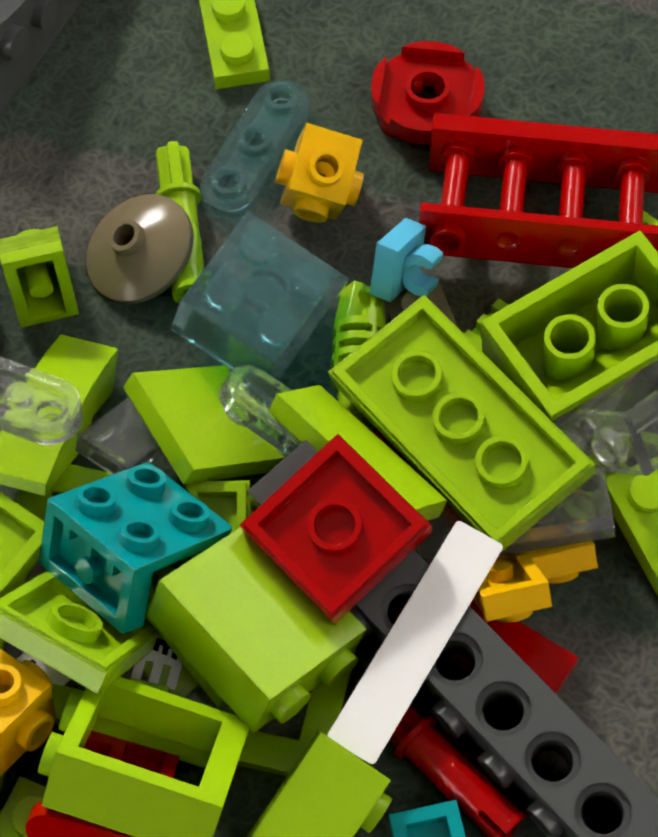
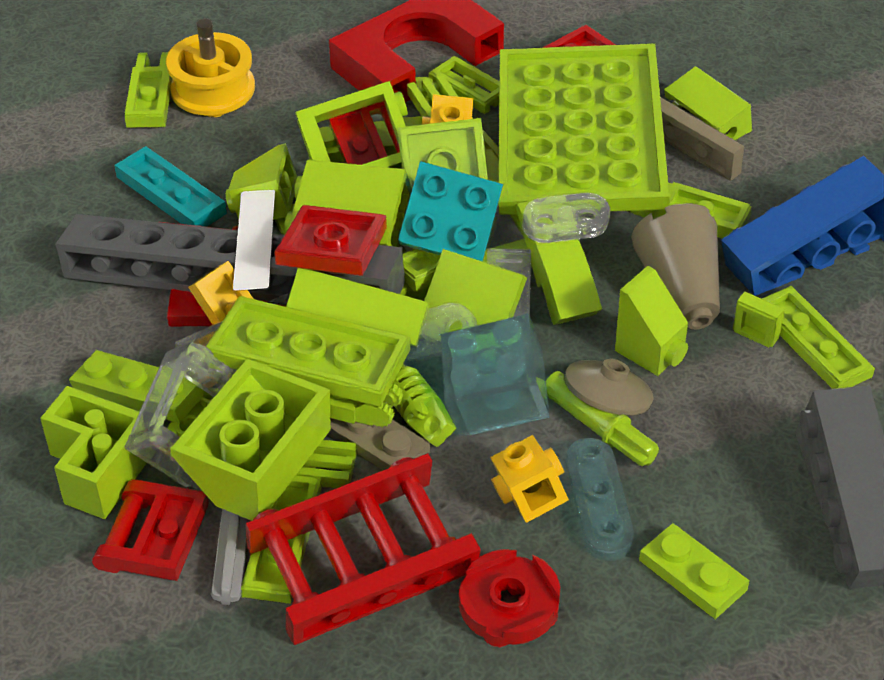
camera: 145 degrees right, 15 degrees down
(399, 262) = (419, 441): medium azure tile -> none

